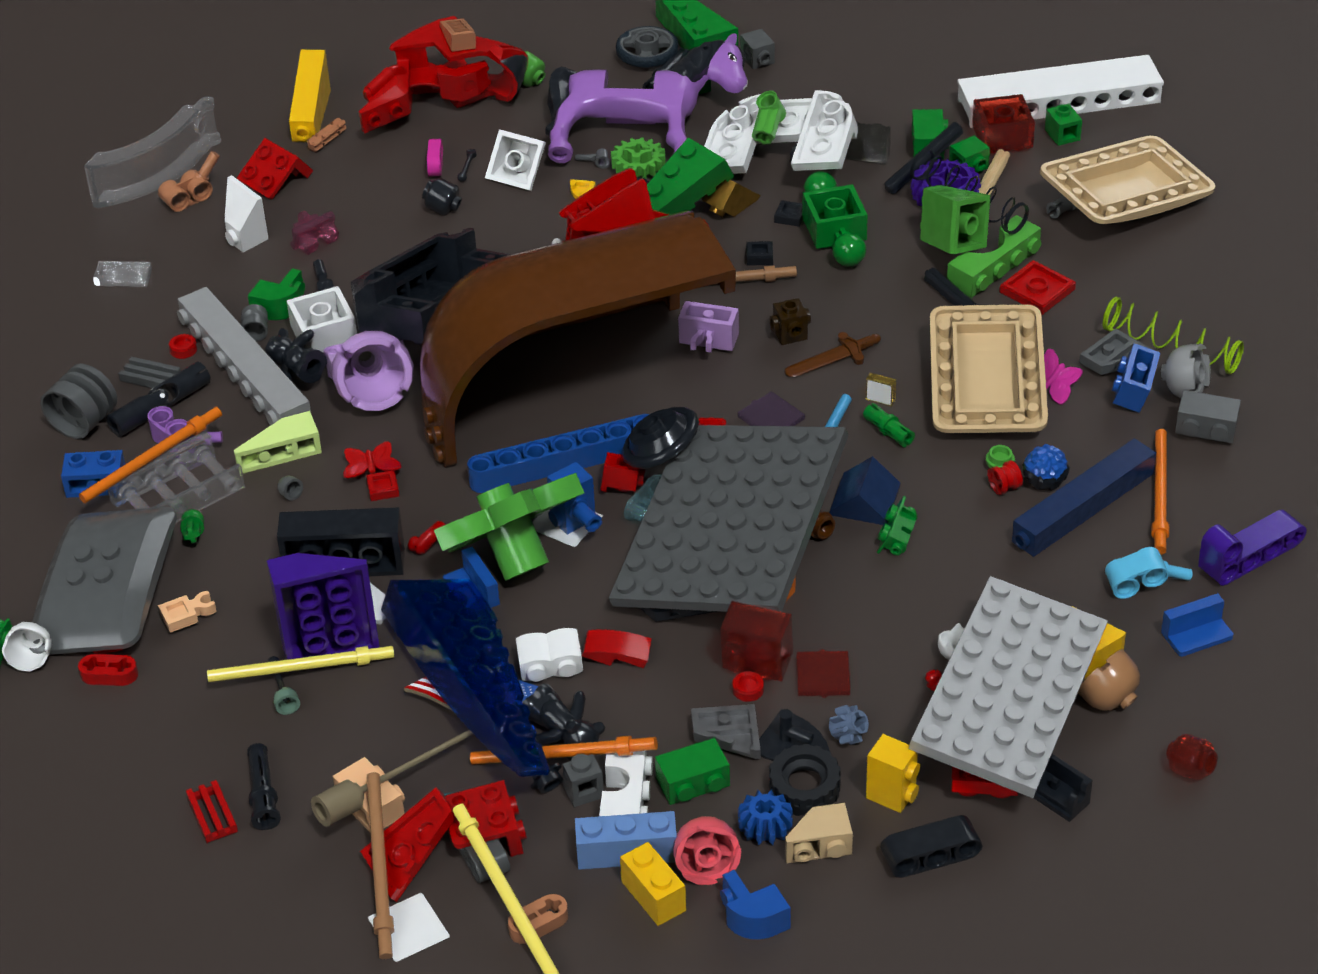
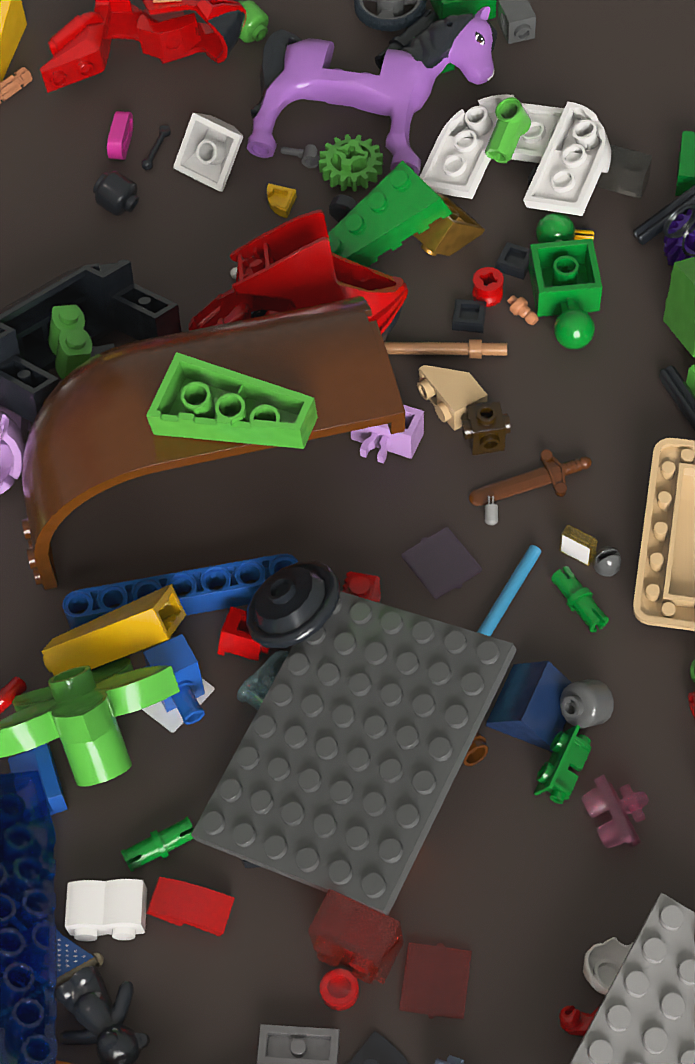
camera: 10 degrees right, 15 degrees up
(431, 281) = (68, 338): none -> bright green brick
(520, 474) = (117, 633): none -> yellow slope
(583, 611) = (158, 844): none -> green pin
(601, 270) = (228, 406): none -> bright green wedge
(755, 302) = (450, 393): none -> tan slope
(772, 229) = (494, 291): none -> red wheel
(800, 243) = (520, 308): none -> nougat piece
(805, 379) = (491, 512): none -> light grey piece
(906, 399) = (610, 565): none -> dark grey hinge
(908, 482) = (586, 703): none -> dark grey head
(948, 548) = (620, 827): none -> clear pink hips

